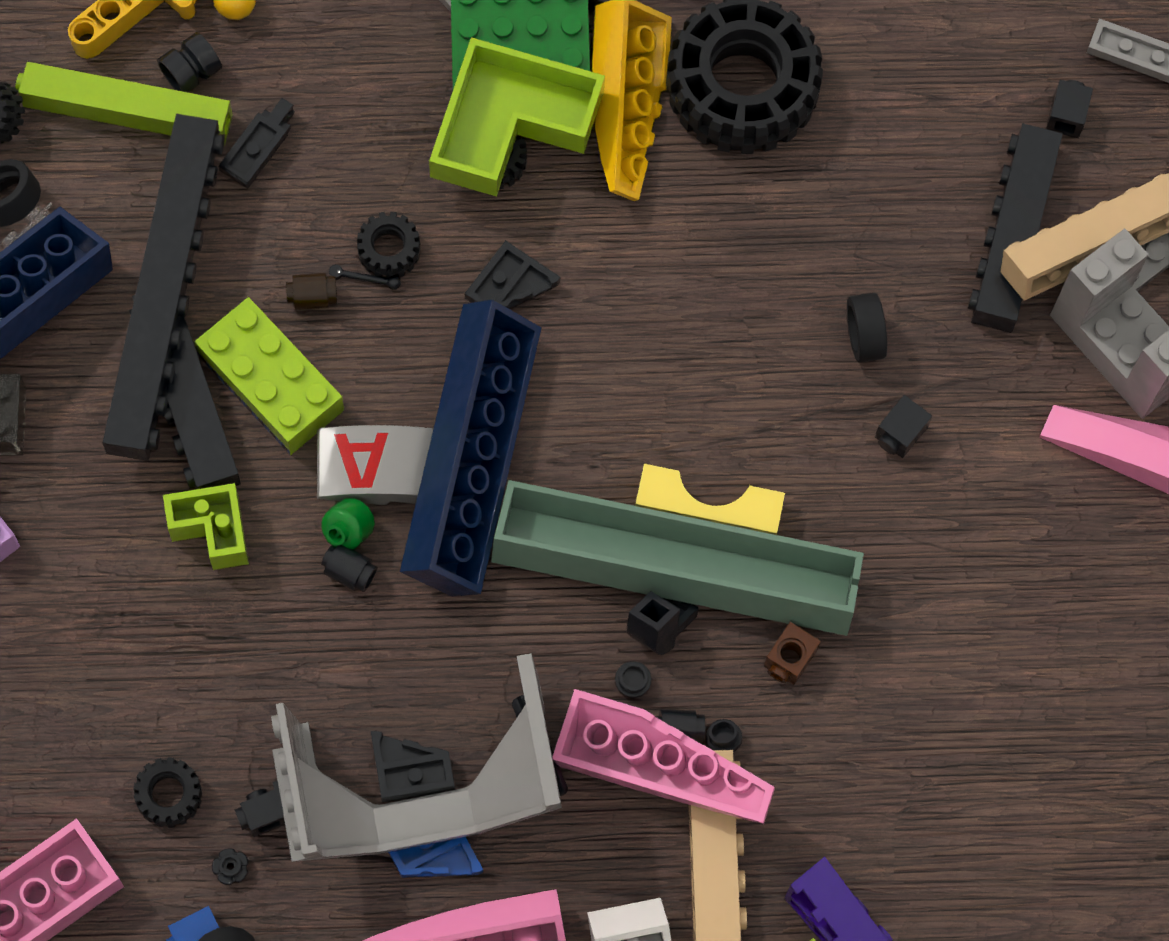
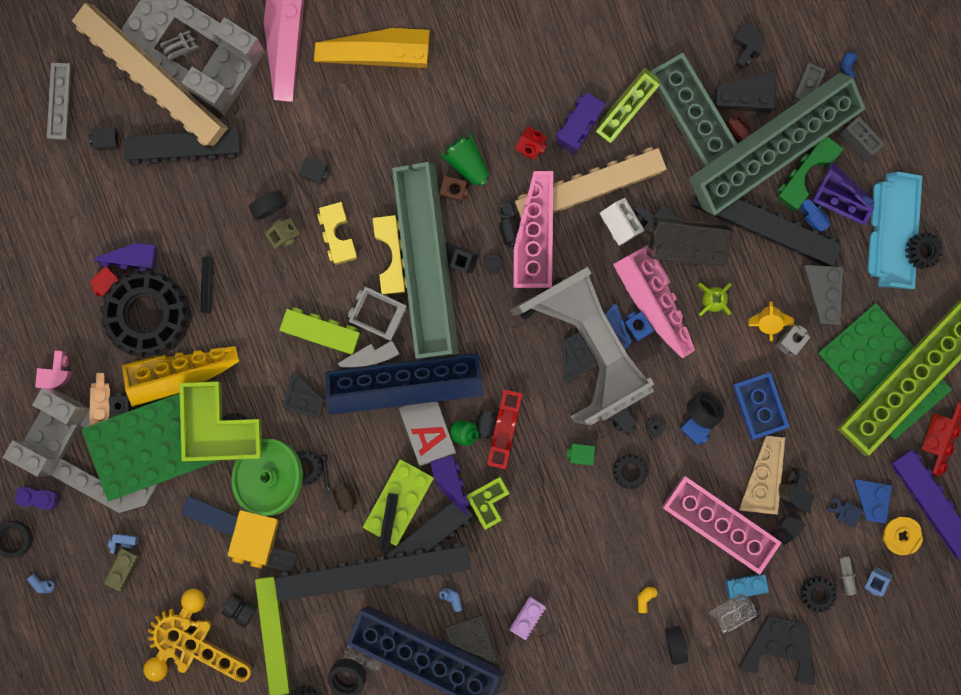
camera: 105 degrees left, 15 degrees up
(71, 414) = (453, 597): none -> medium blue arm
(232, 715) = (580, 454): none -> green brick
(240, 336) = (388, 521): none -> black axle
(280, 467) = (446, 479): none -> dark purple slope
(298, 118) = (253, 539): none -> yellow brick
(305, 583) = (504, 429): none -> red arch
(353, 86) = (209, 515): none -> dark blue tile
(384, 175) = (268, 483): none -> bright green dish
(413, 888) = (638, 335): none -> blue brick
(541, 415) = (369, 356): none -> light grey slope
(585, 473) = (396, 320): none -> light grey window
(614, 346) = (320, 331): none -> lime brick
(762, 191) = (206, 284): none -> black axle
(807, 427) = (332, 217): none -> light yellow arch
(809, 337) = (282, 233): none -> olive brick
(826, 29) = (103, 280): none -> red brick
(830, 819) = (531, 143): none -> red brick
(837, 693) = (467, 159): none -> green cone
(850, 94) = (135, 255): none -> dark purple slope
(1092, 614) = (382, 48): none -> yellow wedge

